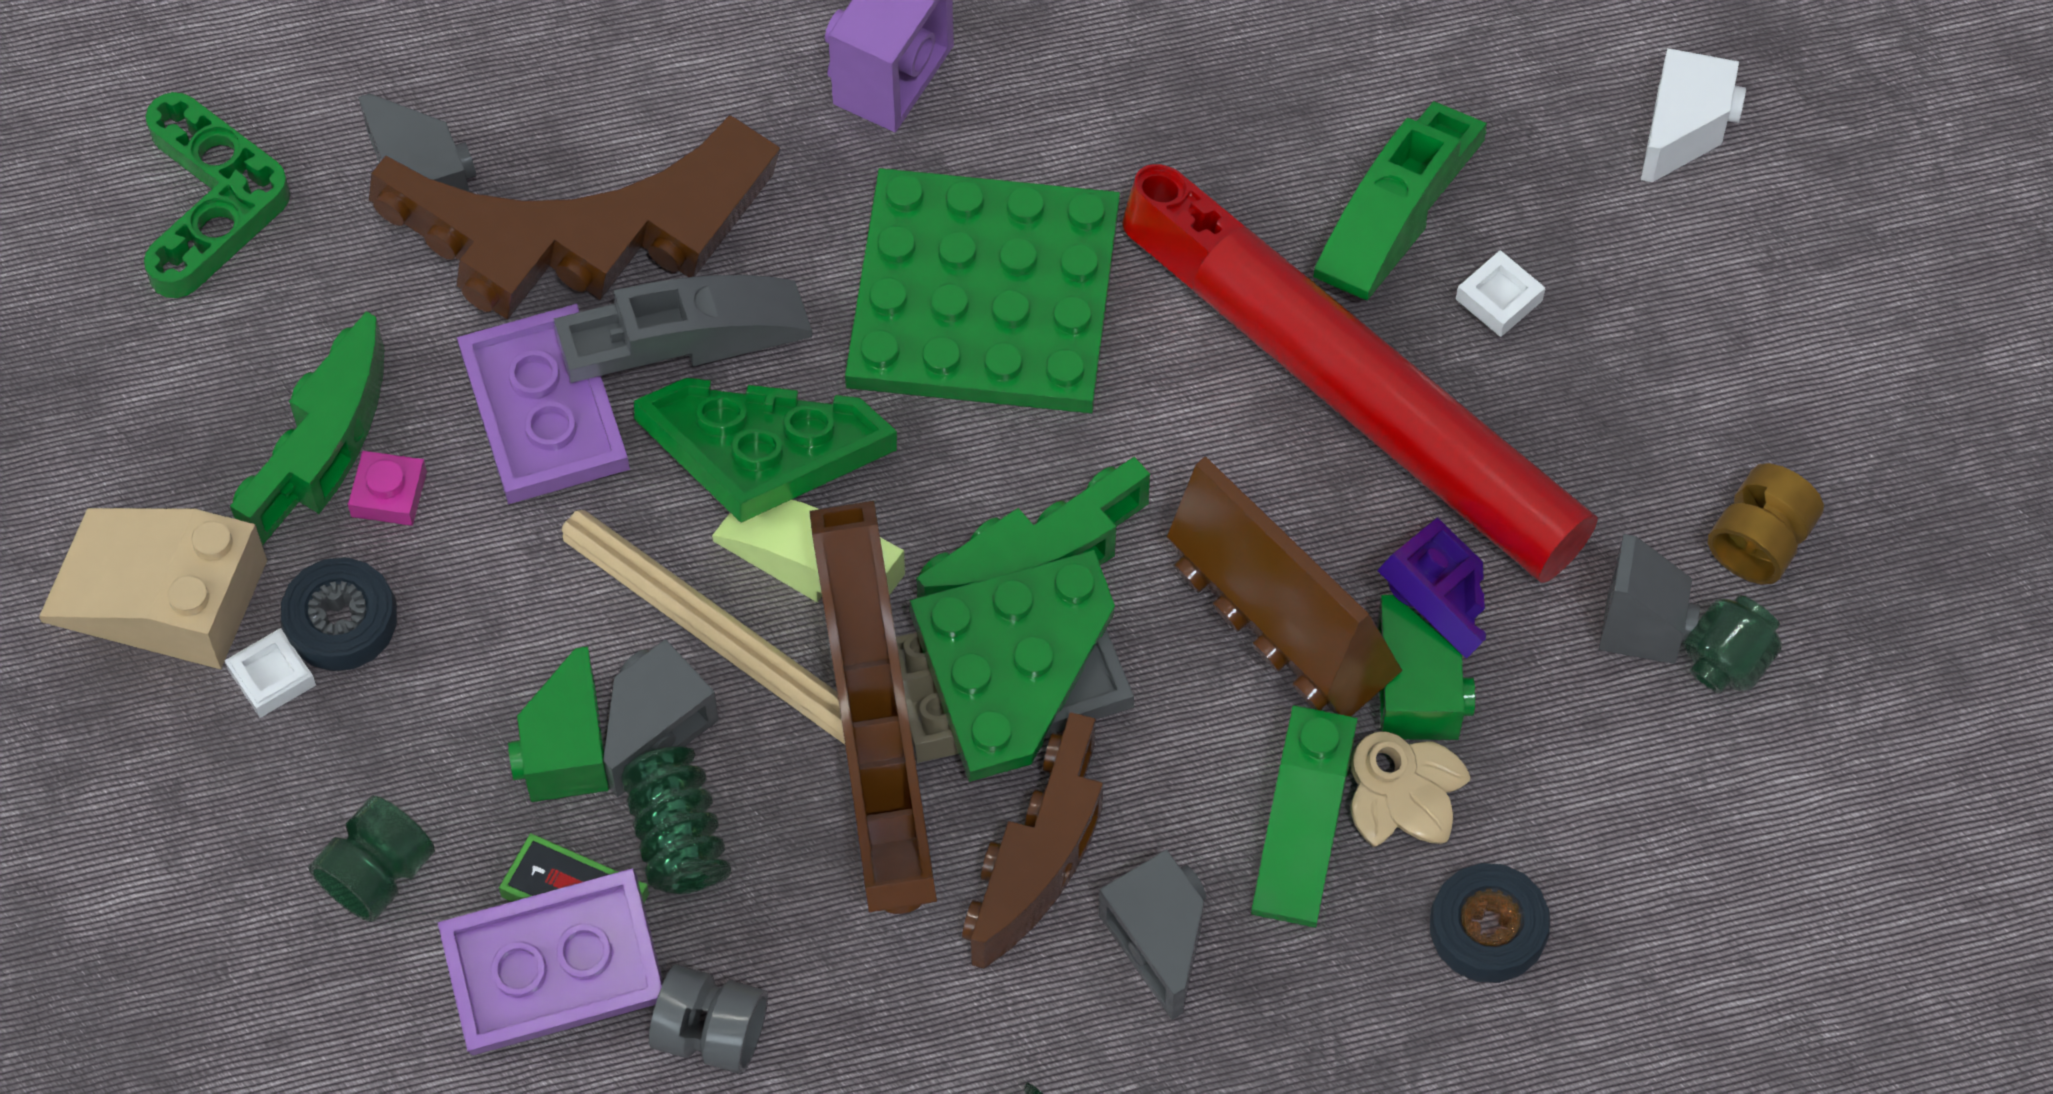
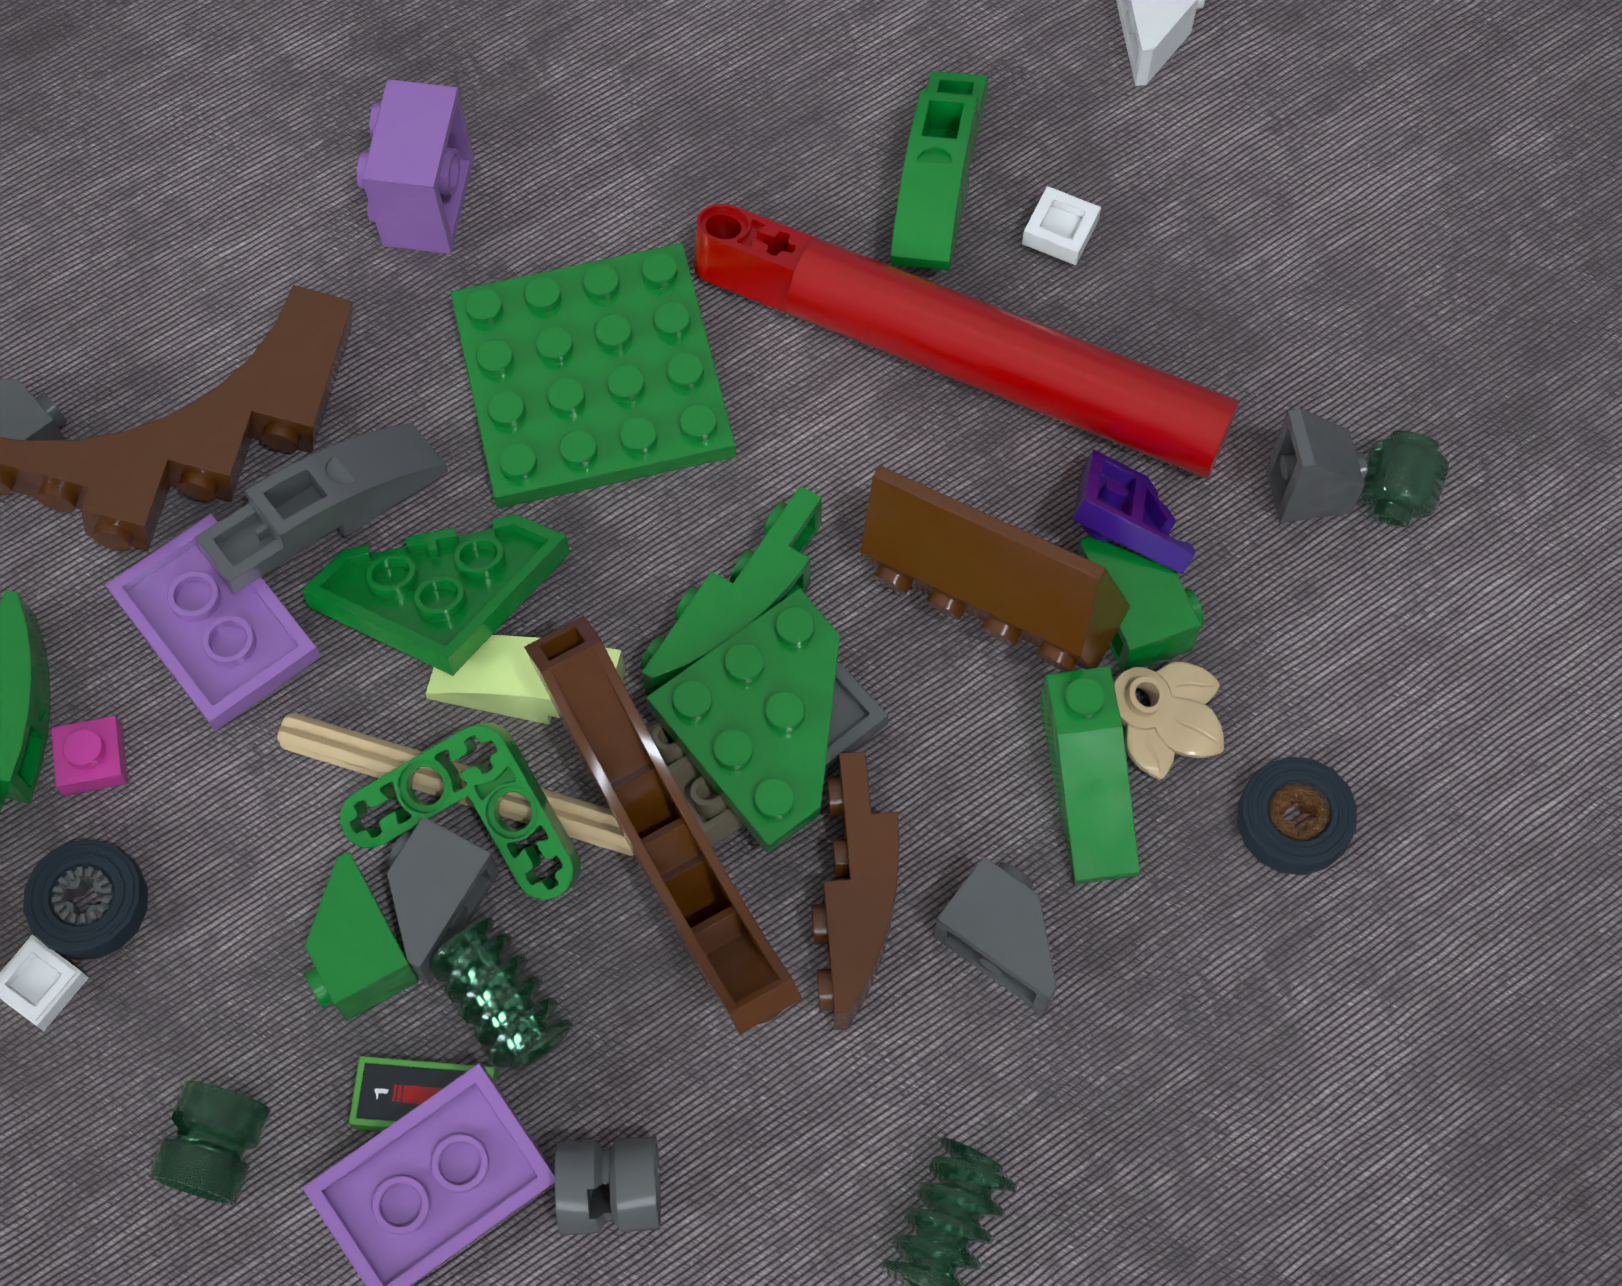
camera: 20 degrees left, 5 degrees up
(732, 636) = (486, 790): none -> green beam
(1765, 523) = (1385, 358): pearl gold wheel -> none

